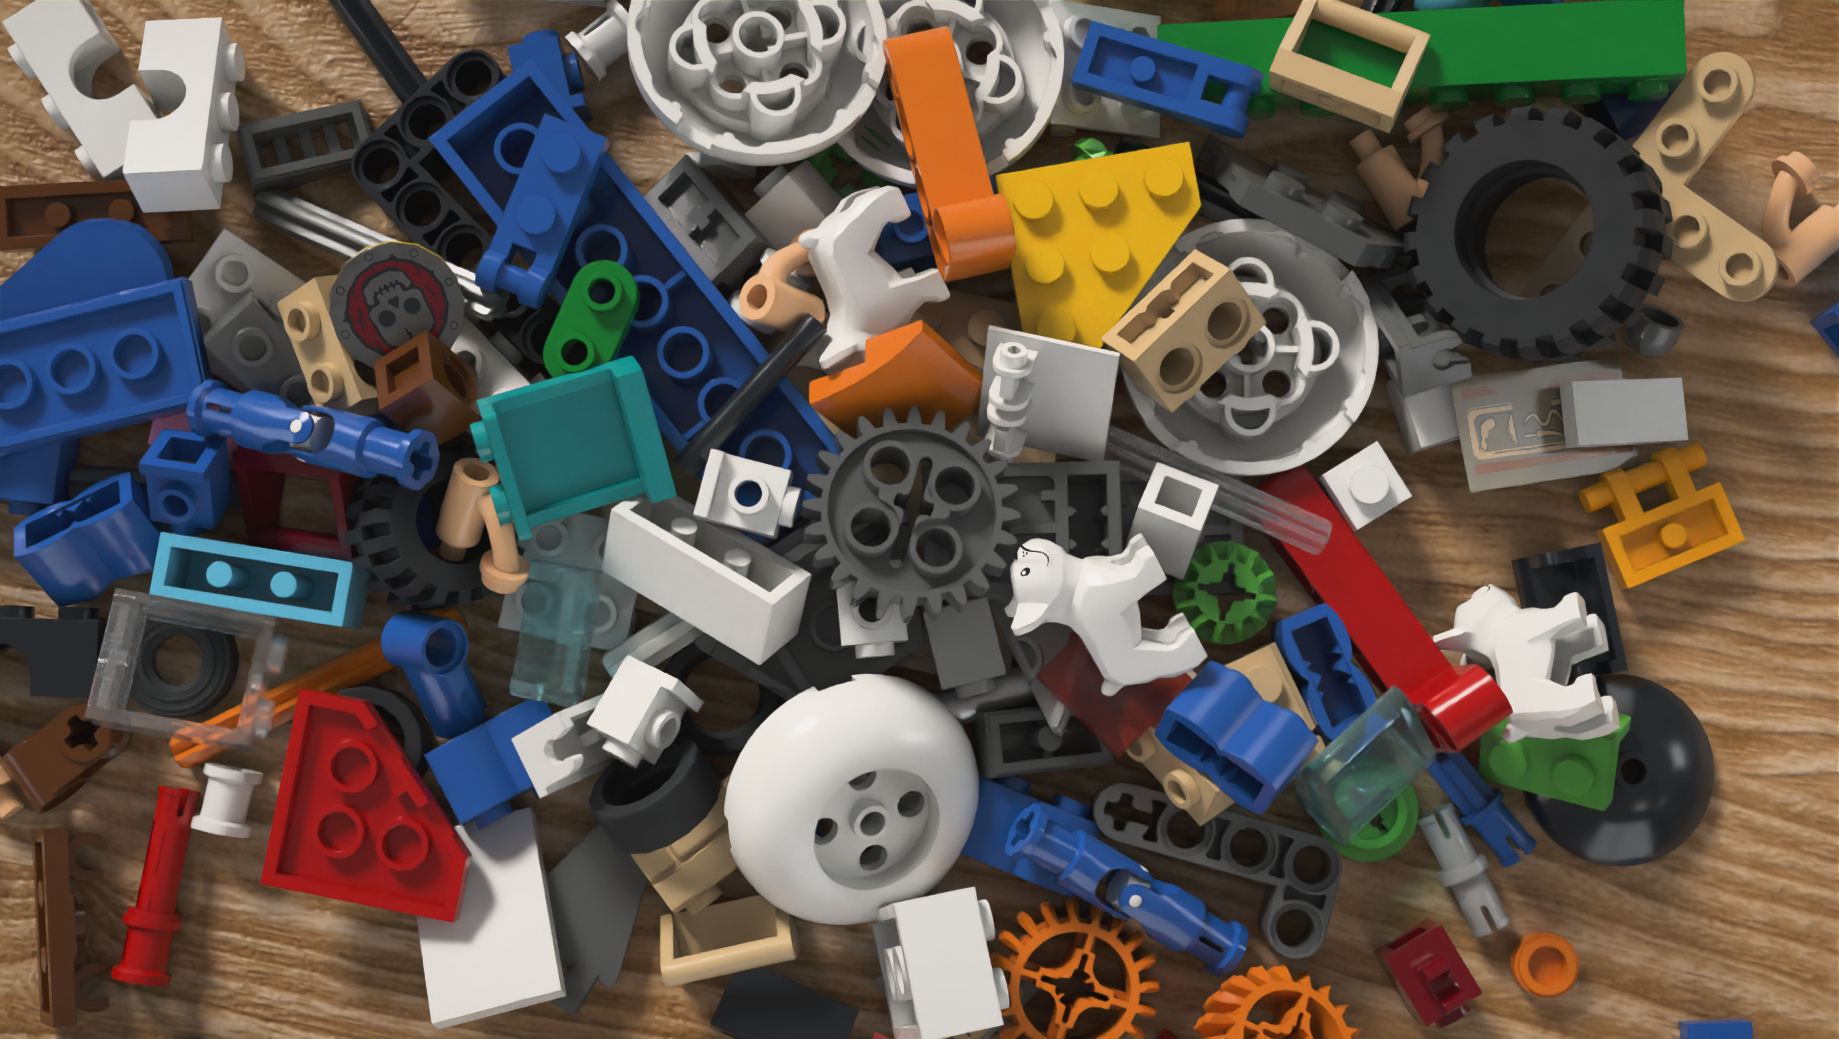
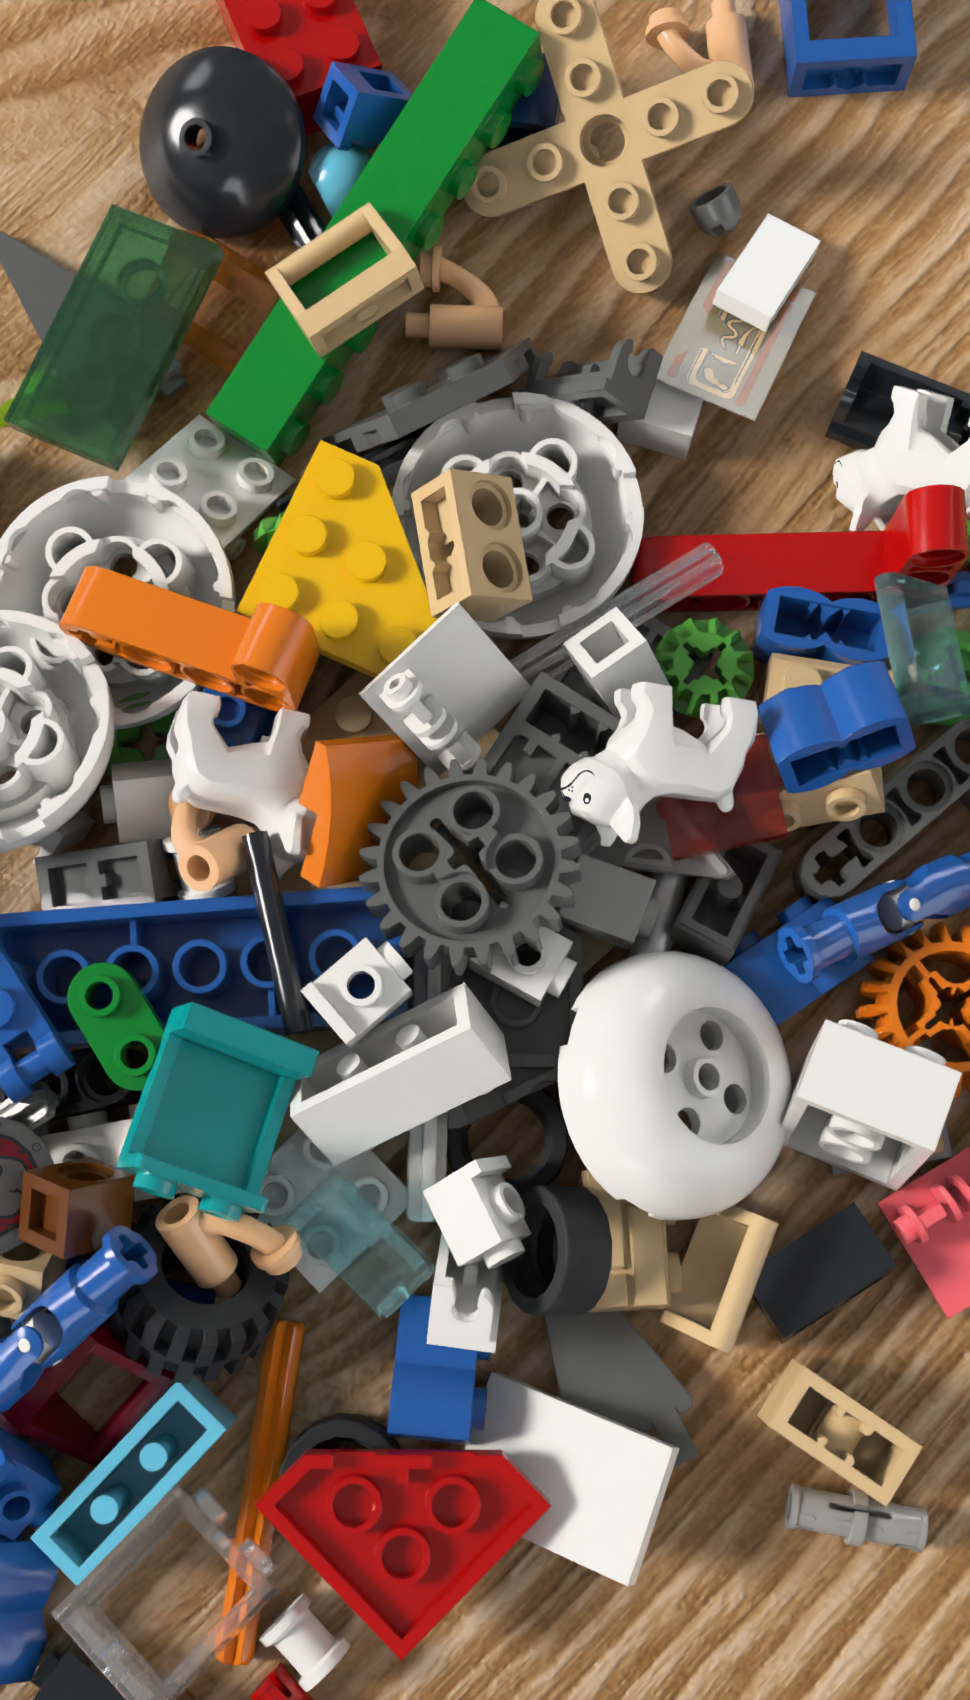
camera: 55 degrees left, 5 degrees down
(205, 691) = (195, 1603): black tyre -> none
(435, 663) = (313, 1369): blue piece -> none
(1165, 78) = (255, 430): blue plate -> none
(1364, 486) = (691, 500): white brick -> none
(1471, 187) = (507, 211): black tyre -> none
(1668, 535) = (886, 300): light orange plate -> none

